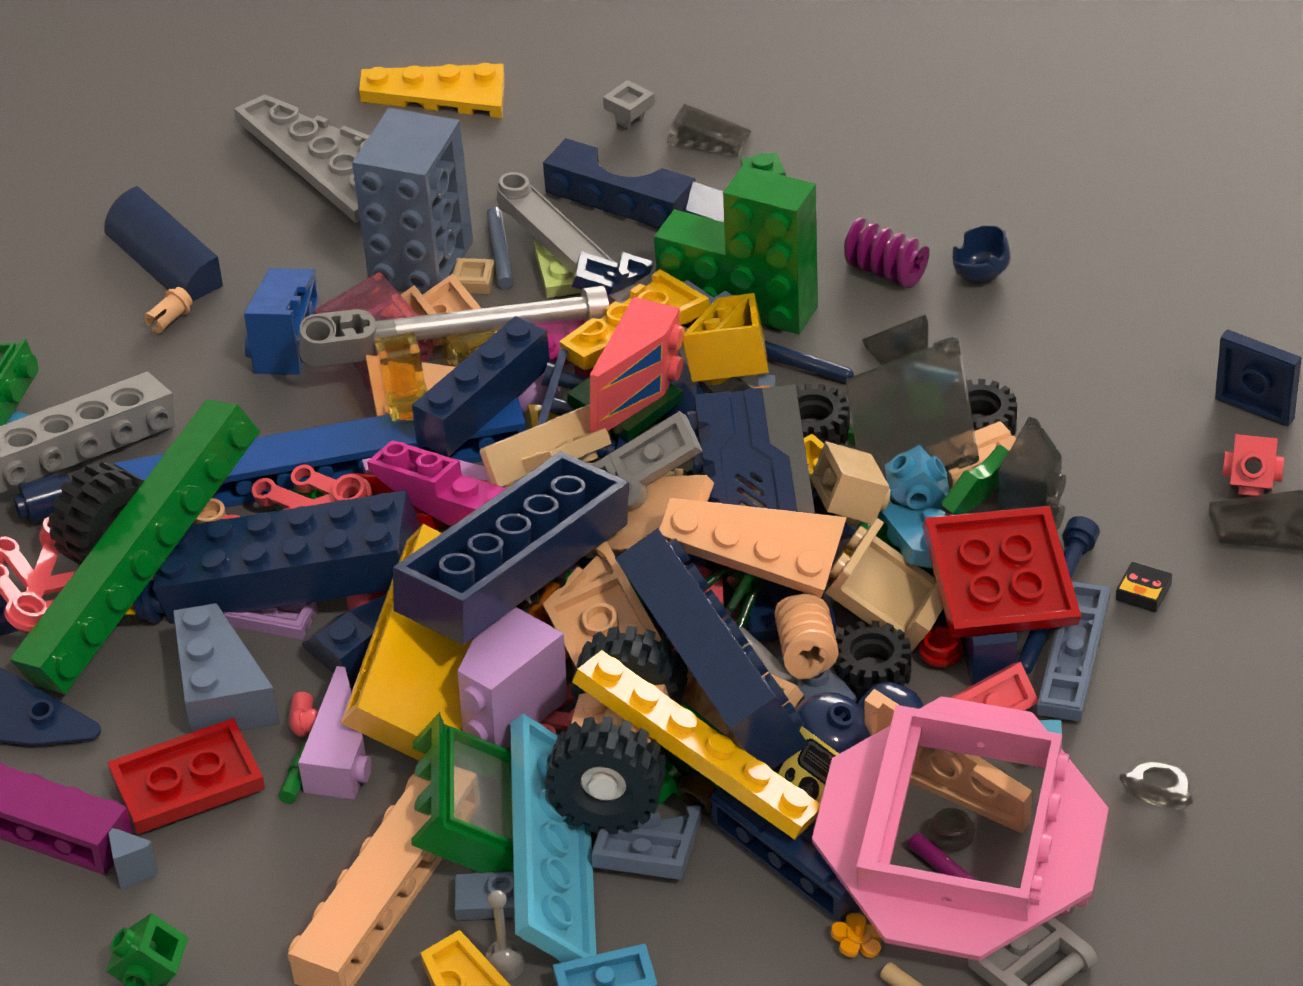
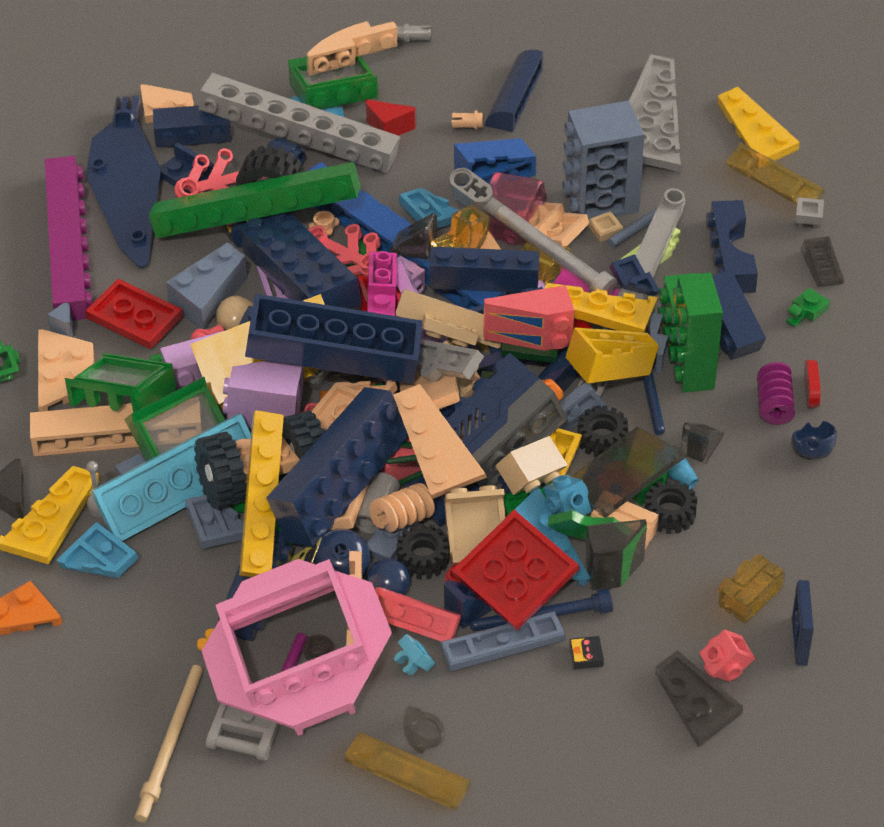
camera: 55 degrees right, 5 degrees up
(85, 372) = (391, 117): none -> red slope
(209, 898) = (59, 359): none -> light nougat wing
(291, 409) = (422, 203): none -> dark azure wing
(293, 669) = (231, 311): none -> tan hair
(327, 817) = (122, 375): none -> green window
(364, 422) = (416, 238): none -> clear smoke slope
(538, 105) = (772, 175): none -> clear yellow plate
(894, 216) = (812, 383): none -> red tile
(1160, 404) = (750, 587): none -> clear yellow brick
(1210, 828) = (407, 770): none -> clear yellow plate

